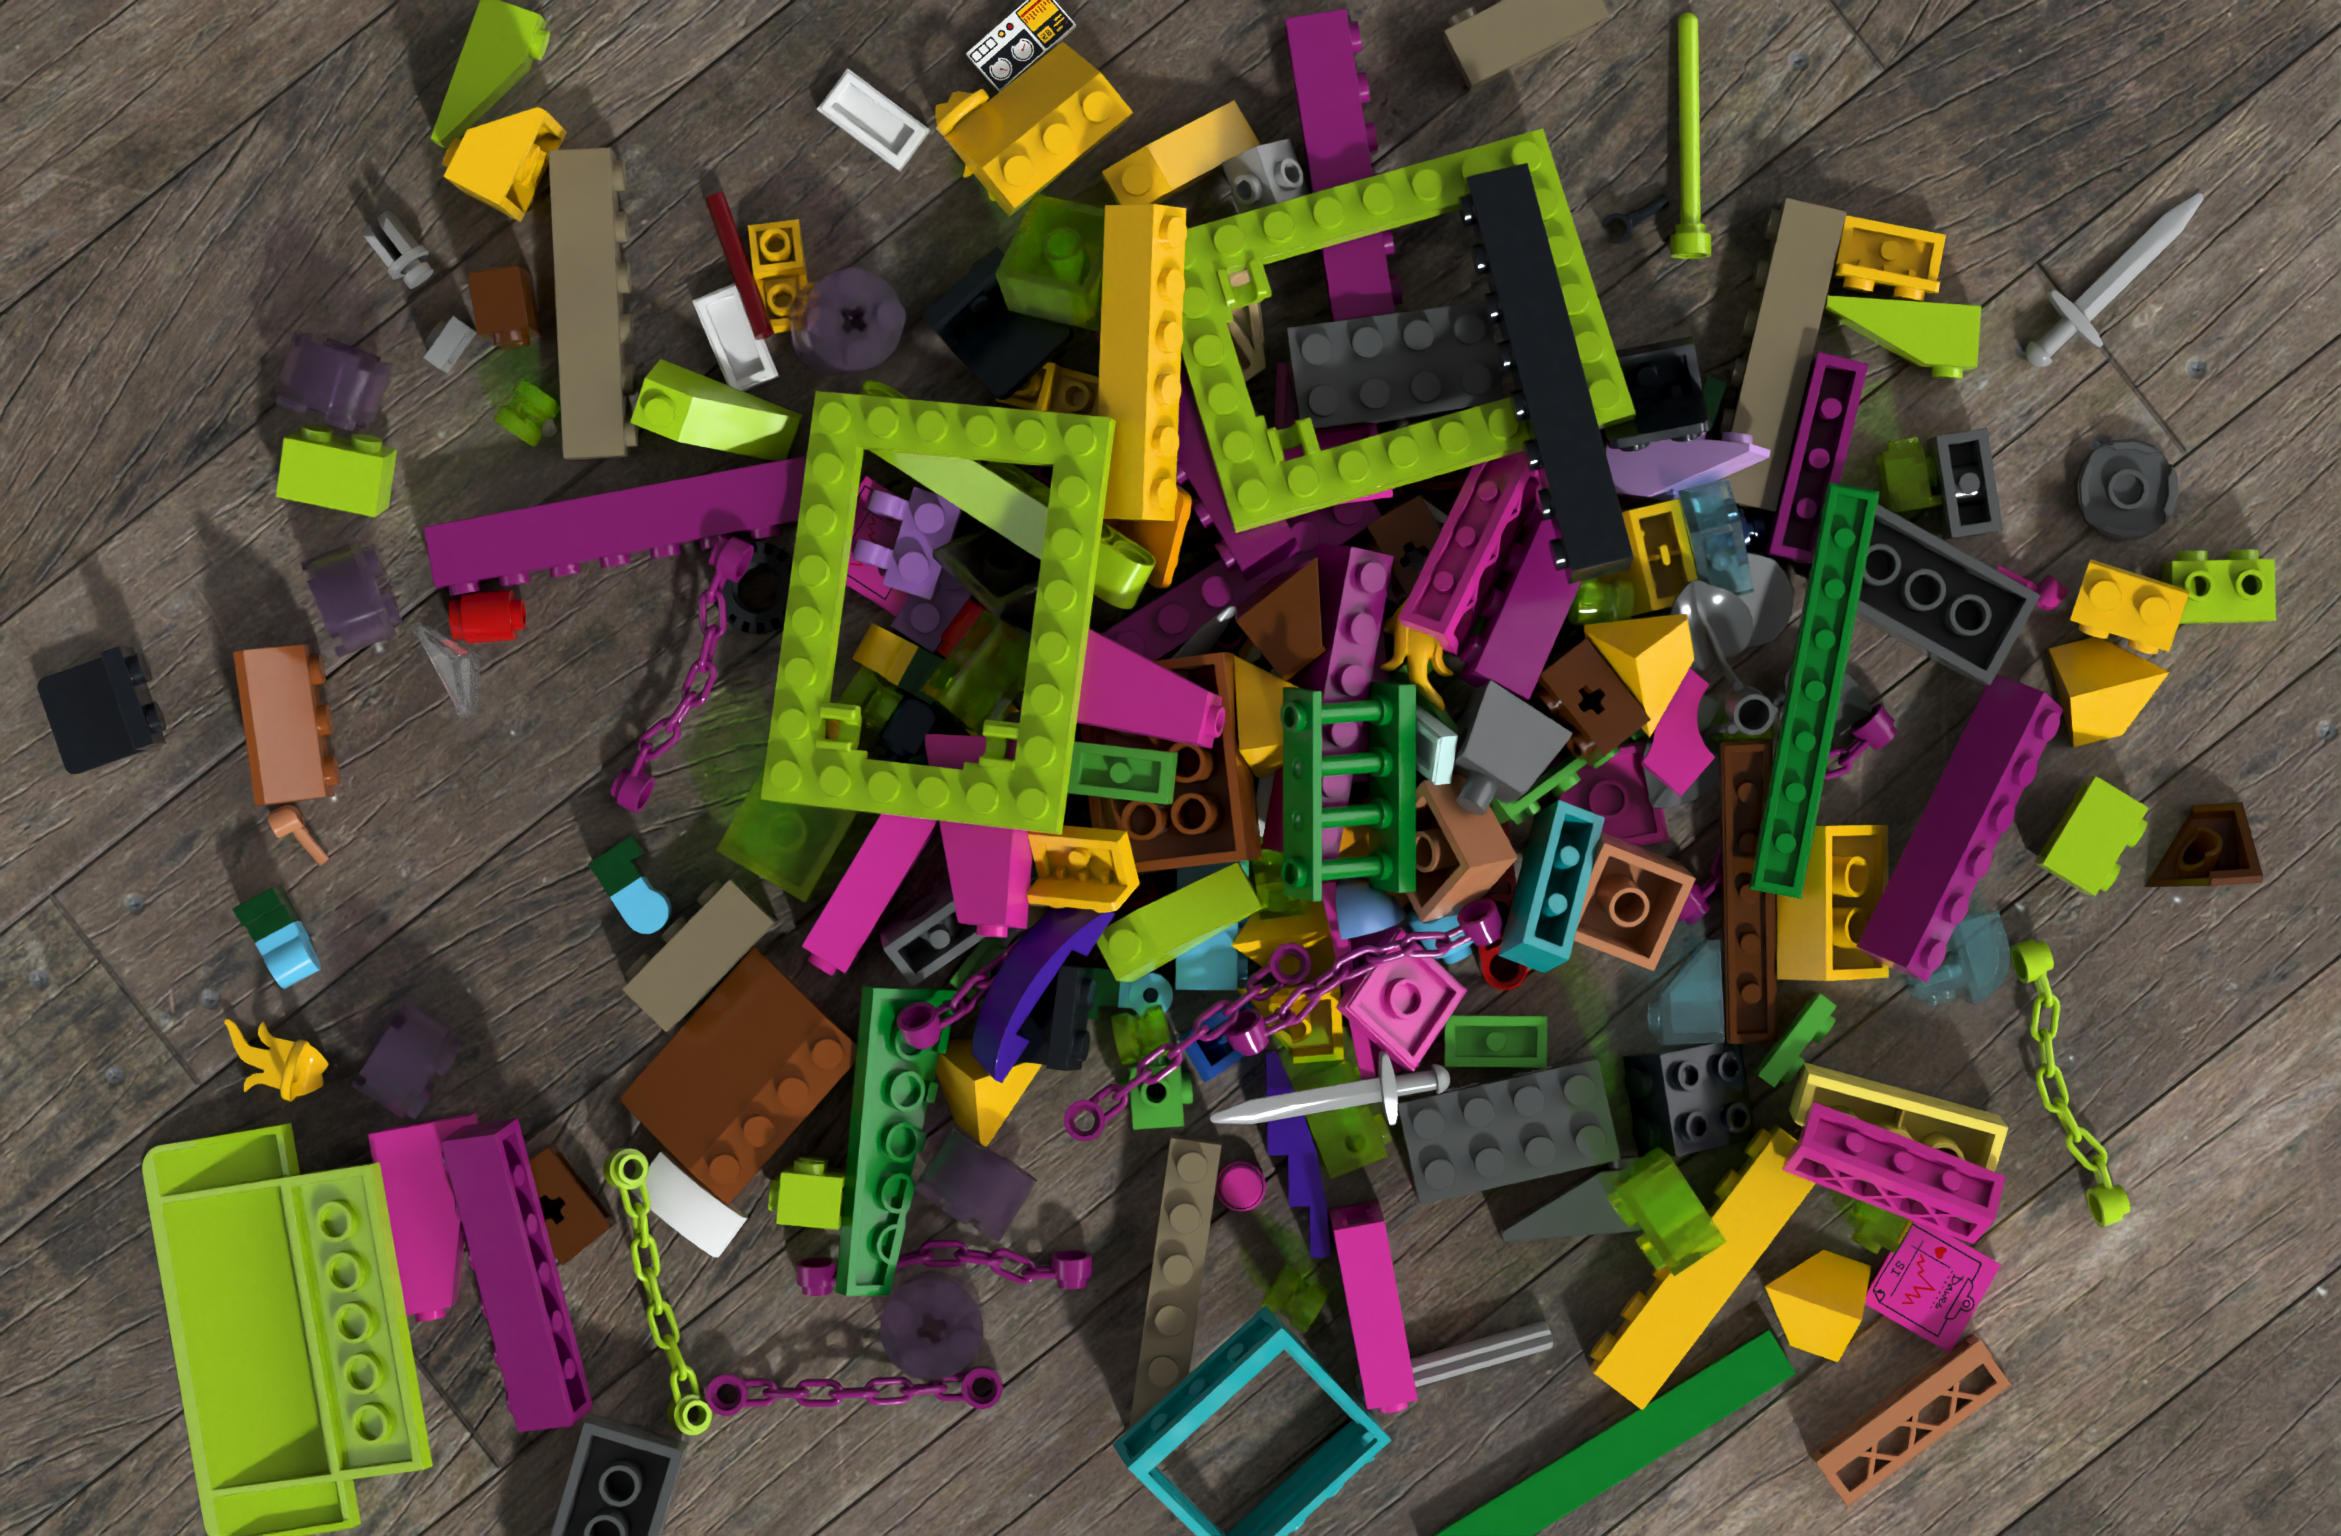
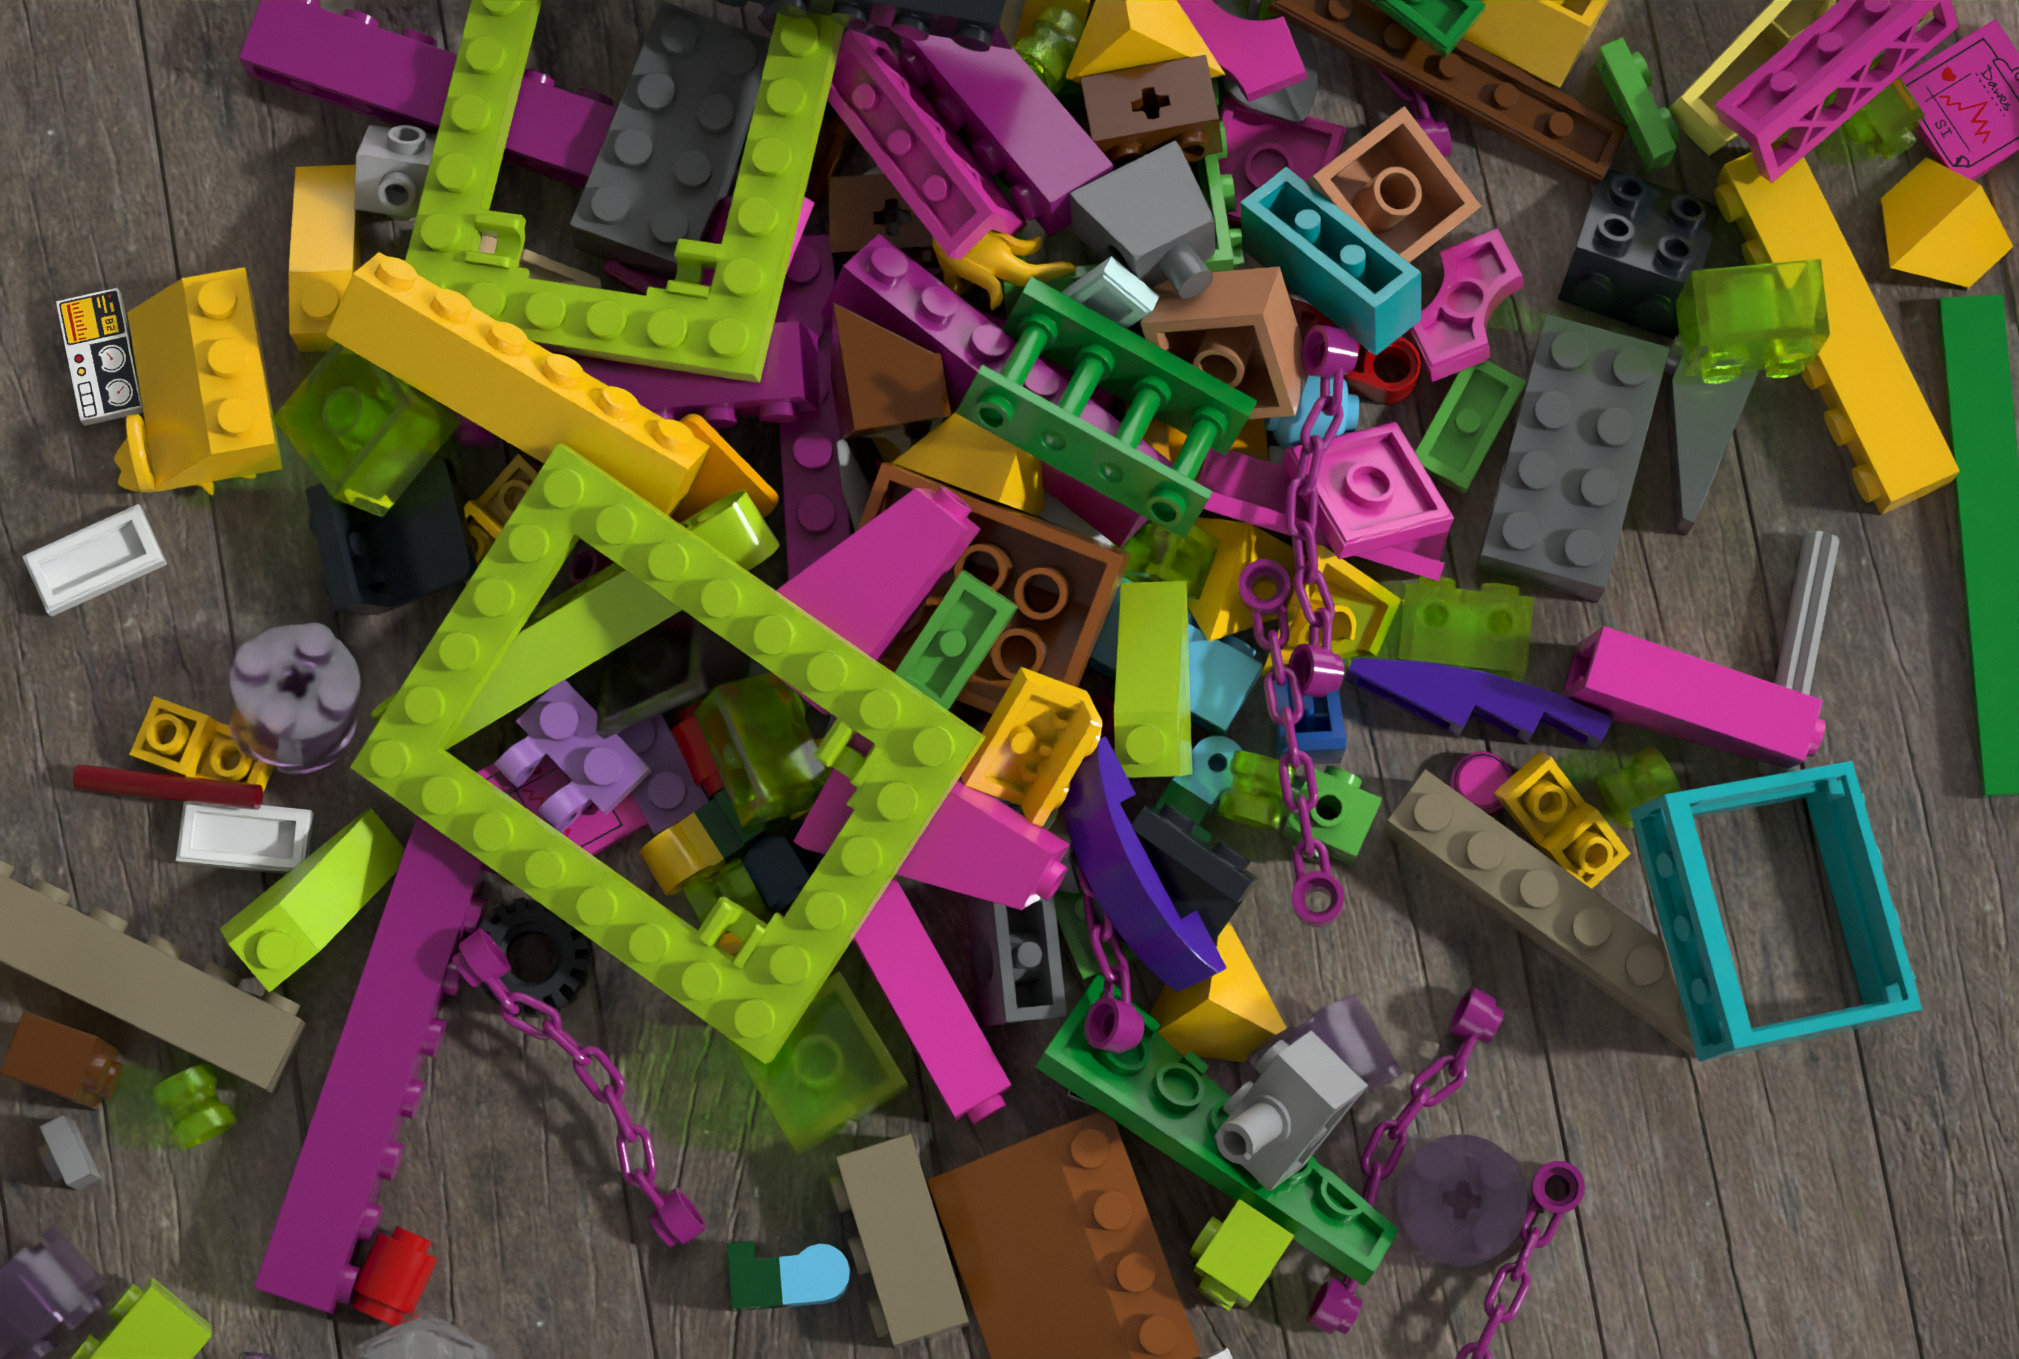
camera: 65 degrees left, 10 degrees down
(920, 1179) = (1288, 1109): none -> light grey brick
(1241, 1257) = (1561, 821): none -> yellow slope
(1364, 909) = (1246, 471): medium blue brick -> none
(1379, 1089) = (1456, 560): light grey sword -> none
(1560, 994) = (1455, 323): none -> dark pink tile
(1691, 1000) = (1533, 189): clear light blue slope -> none

